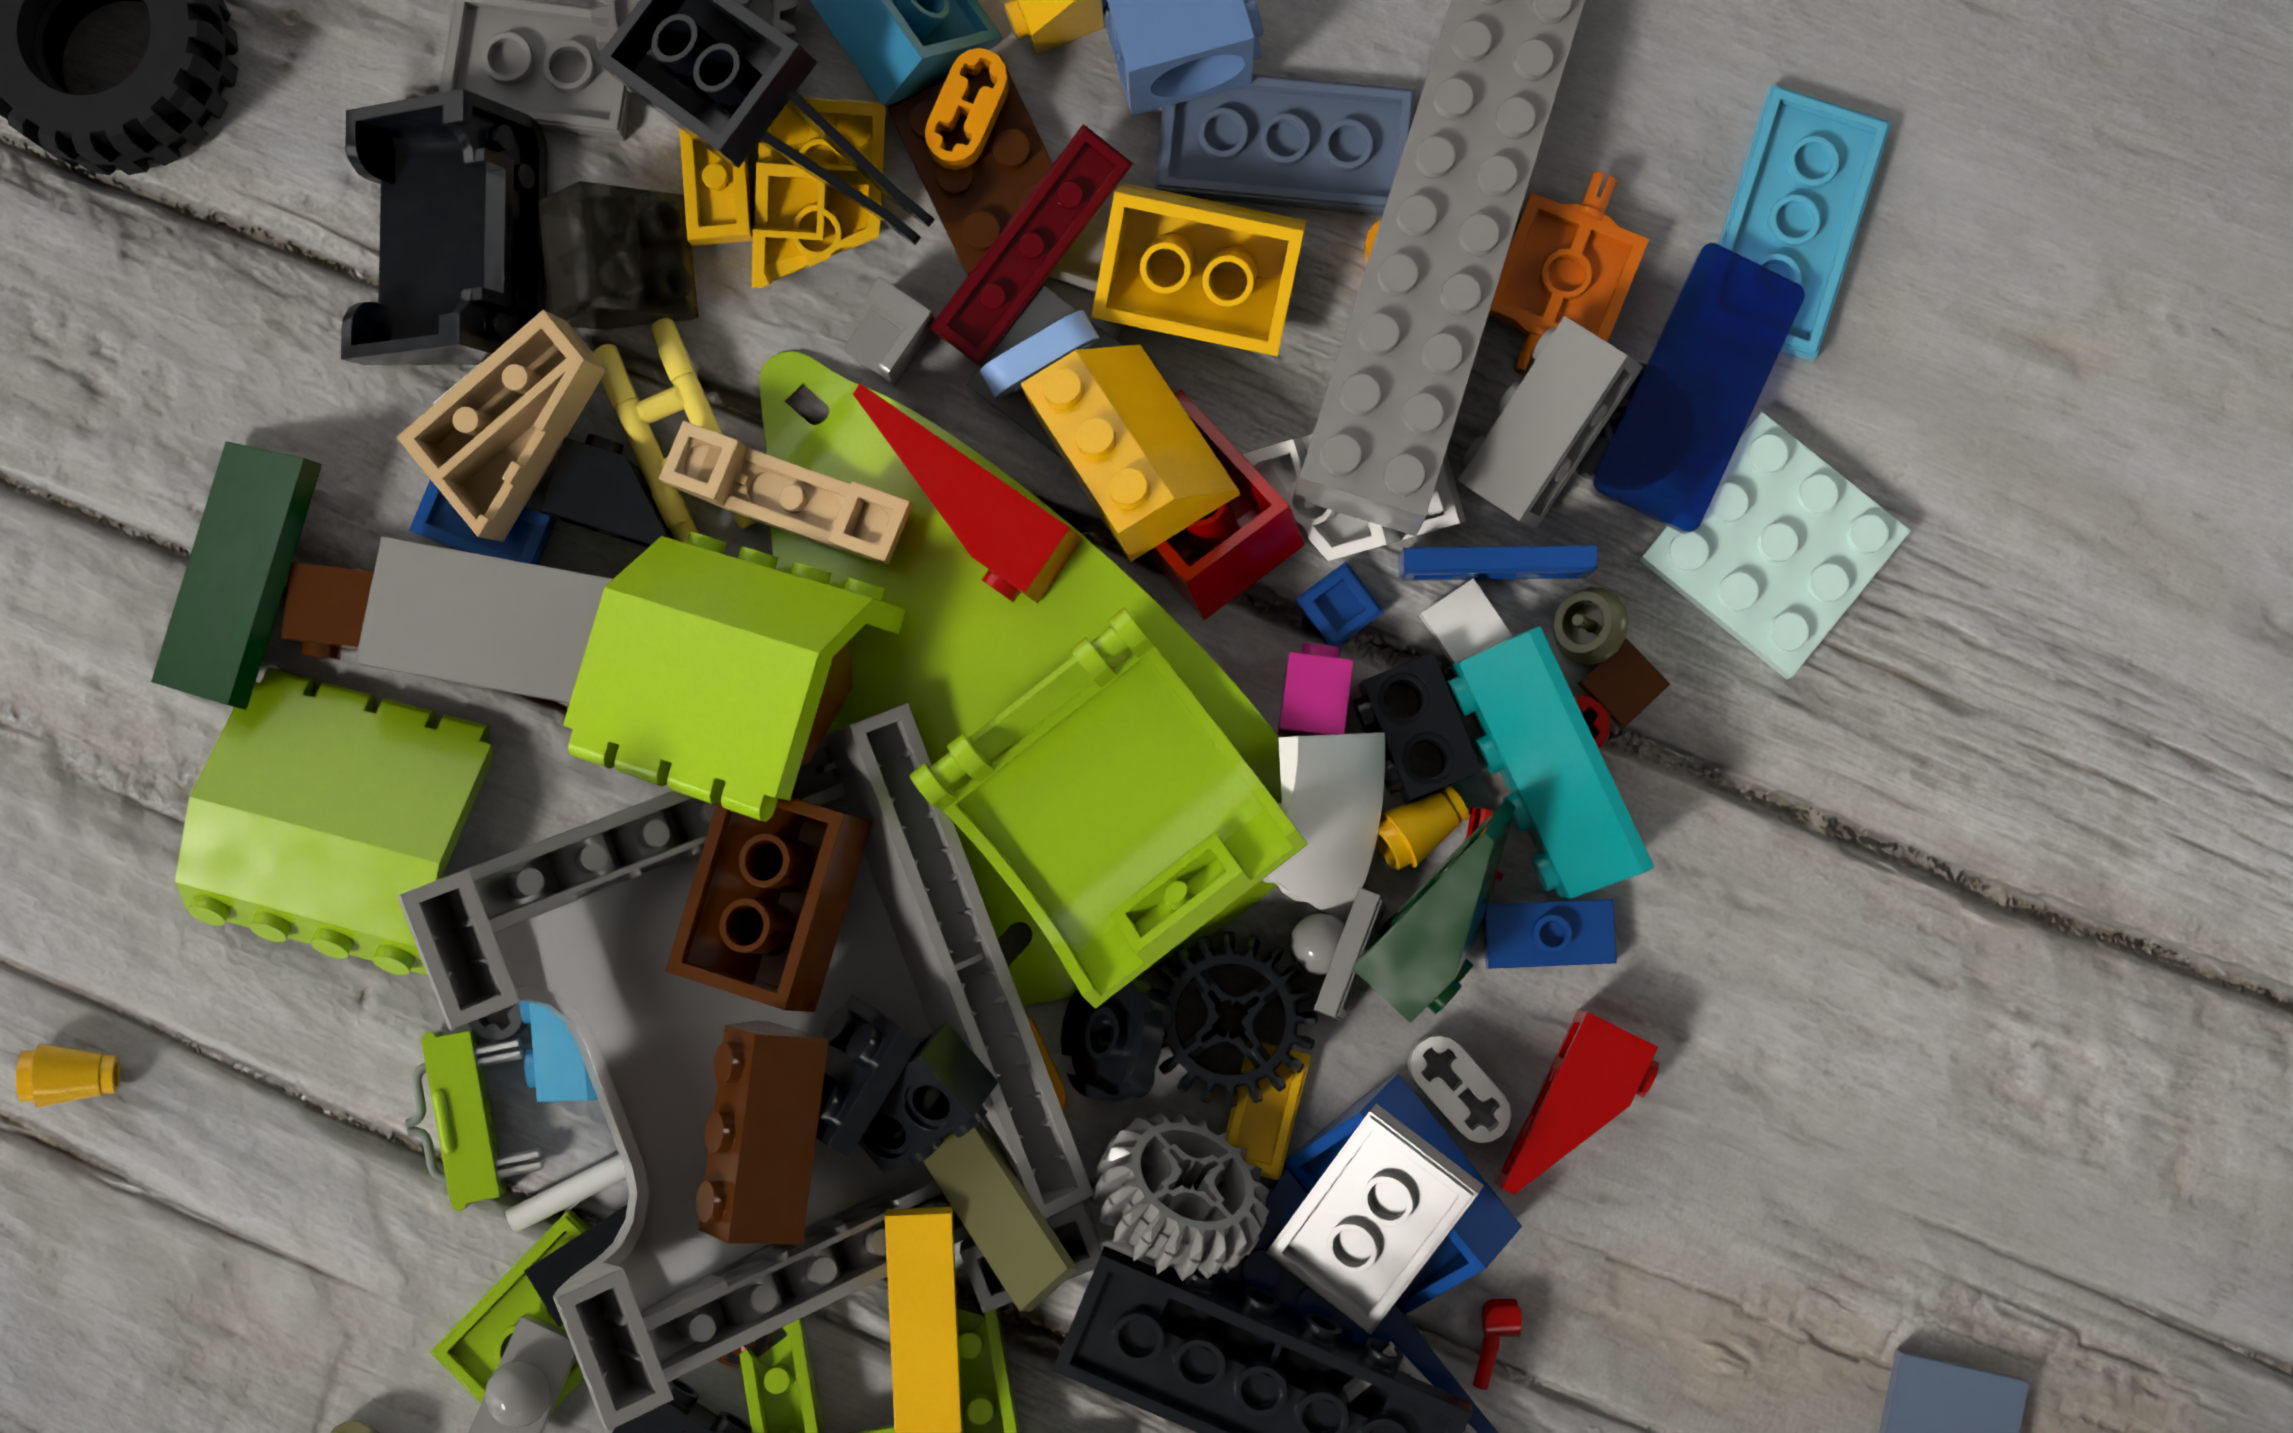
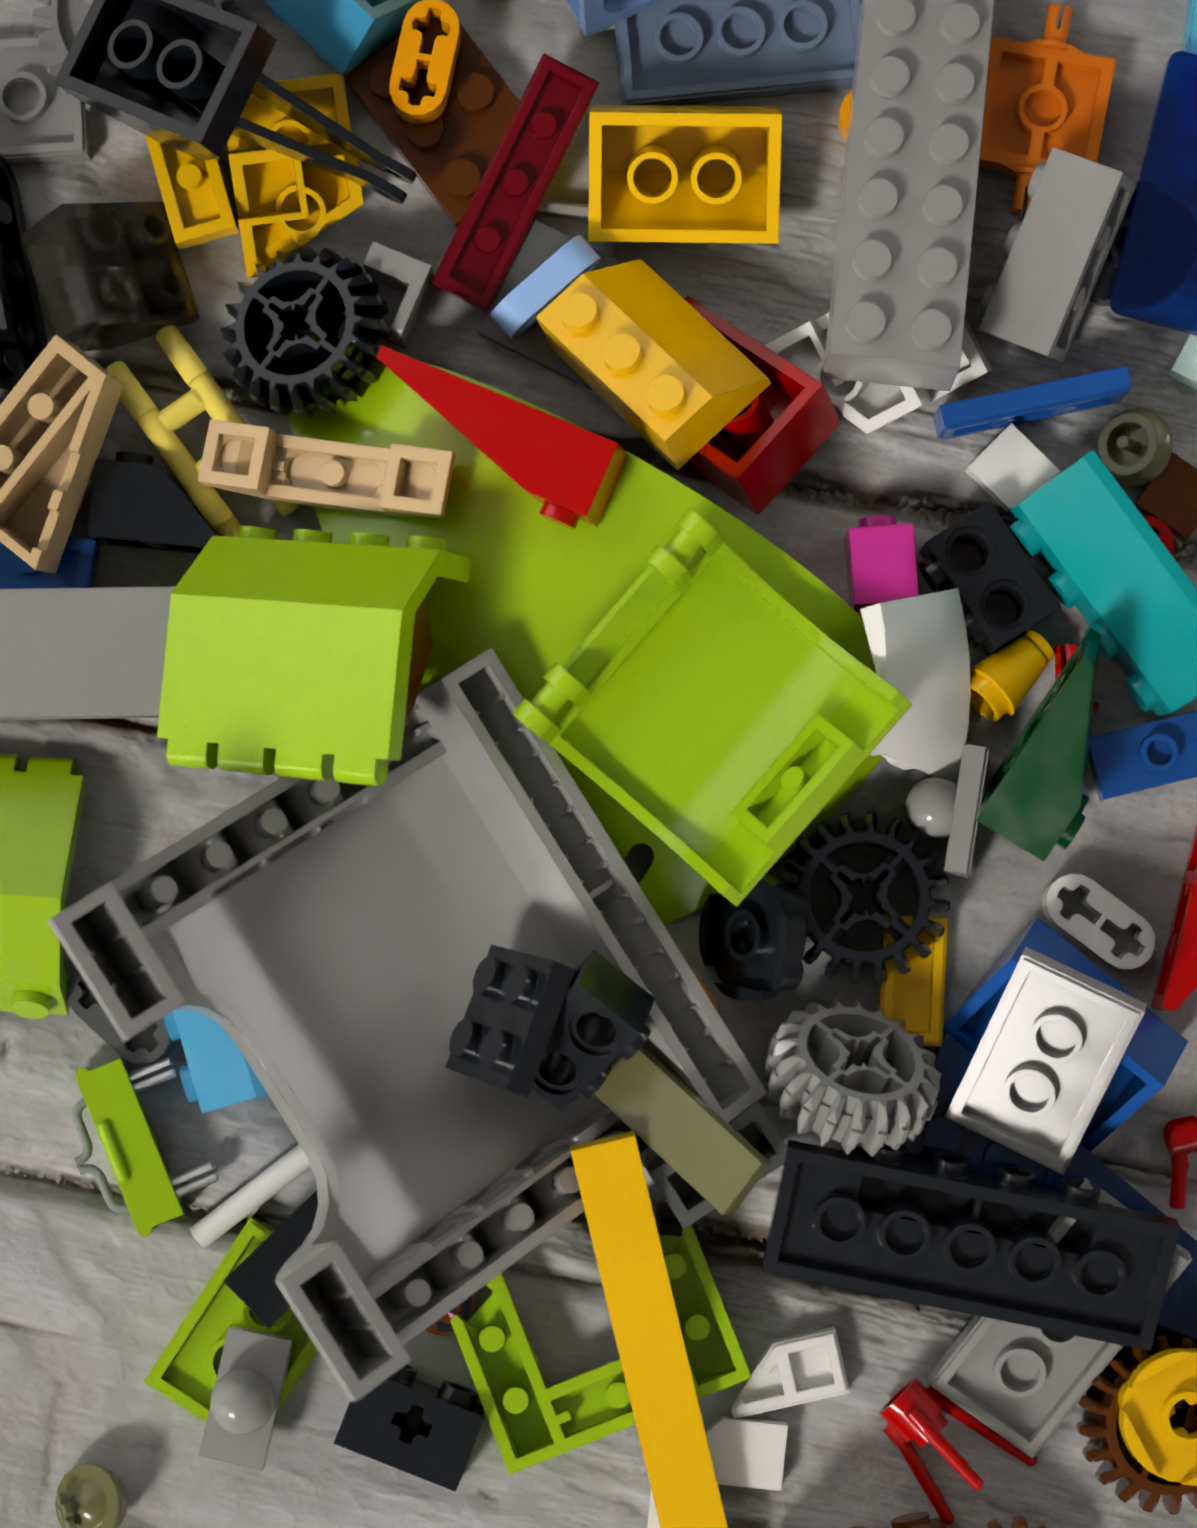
camera: 15 degrees left, 0 degrees up
(761, 365) = (327, 289): none -> black gear
(762, 1134) = (439, 1092): reddish brown slope -> none
(770, 902) = (396, 866): reddish brown slope -> none
(1339, 606) = (885, 476): blue tile -> none

